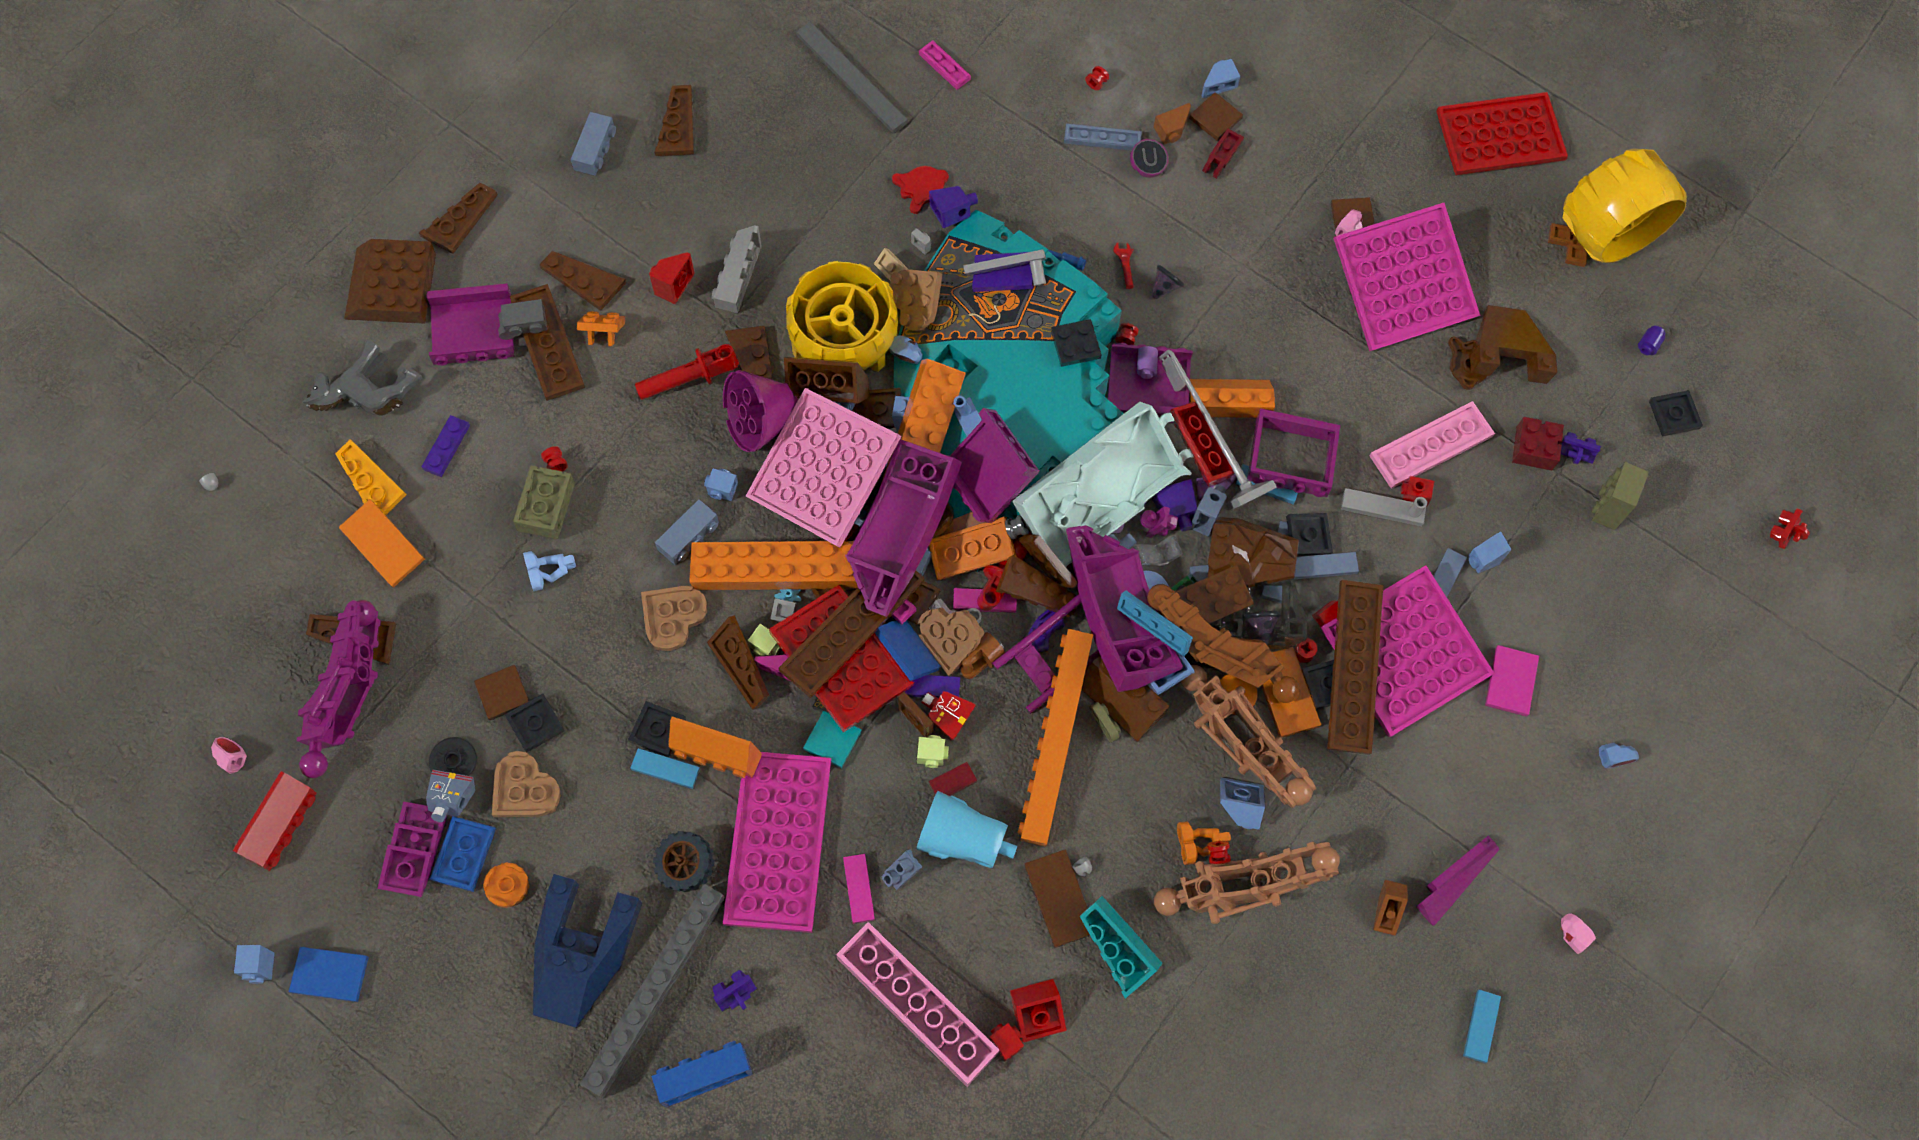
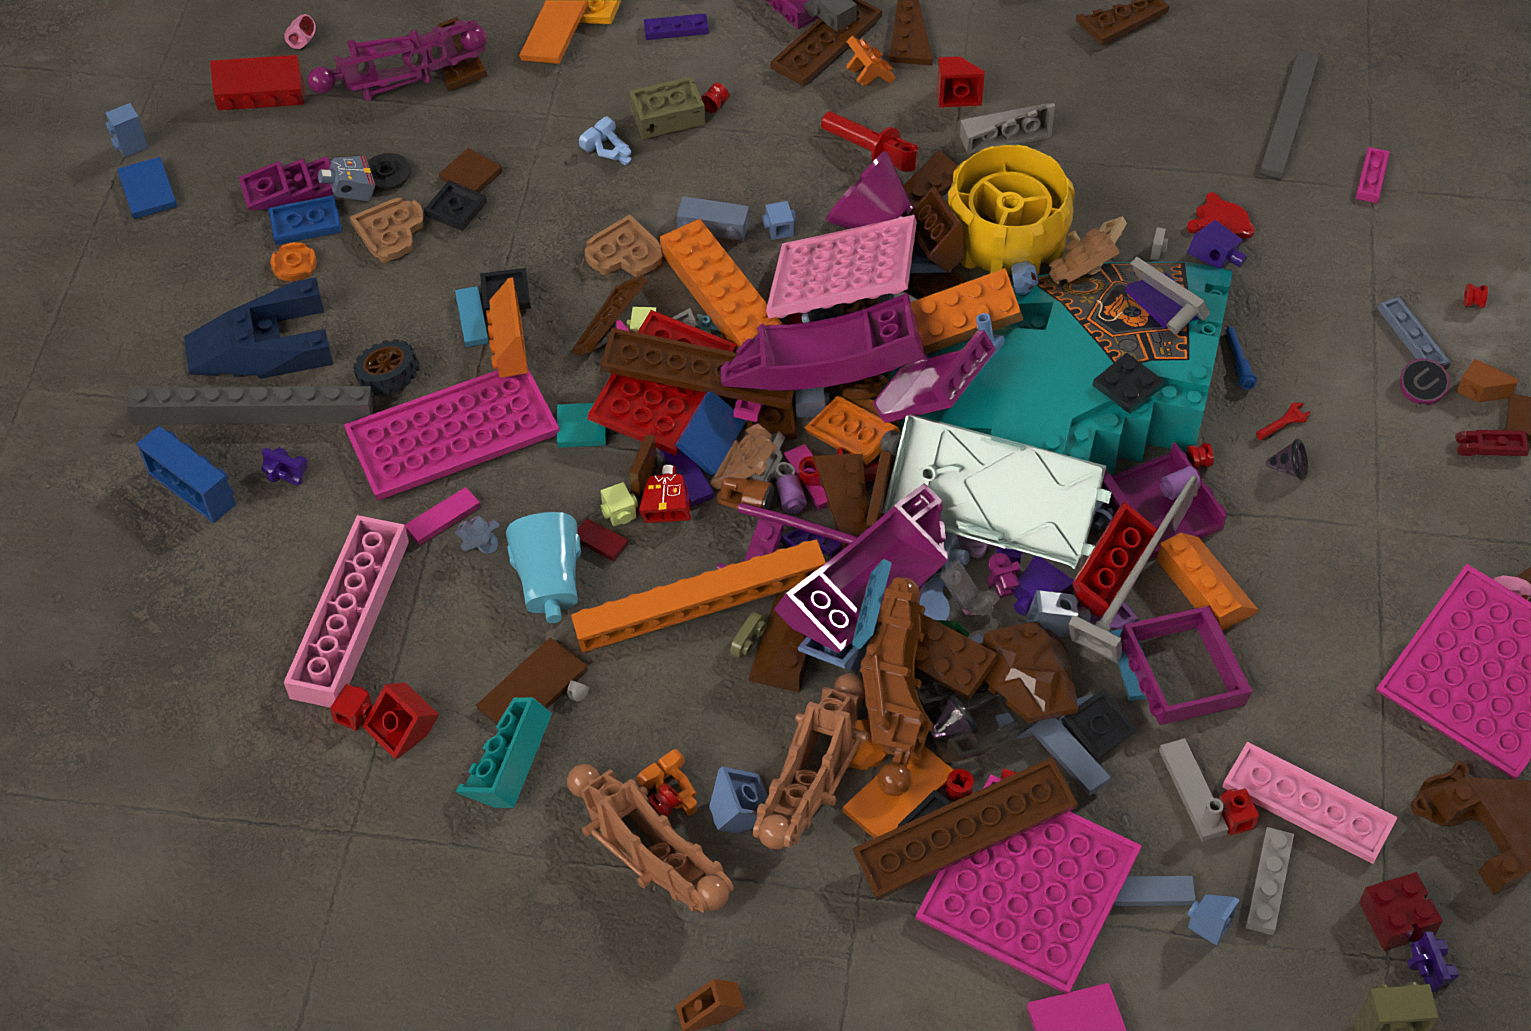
camera: 65 degrees right, 15 degrees down
(997, 623) = (791, 494): none -> medium lavender brick
(1472, 503) = (1269, 881): none -> light grey plate

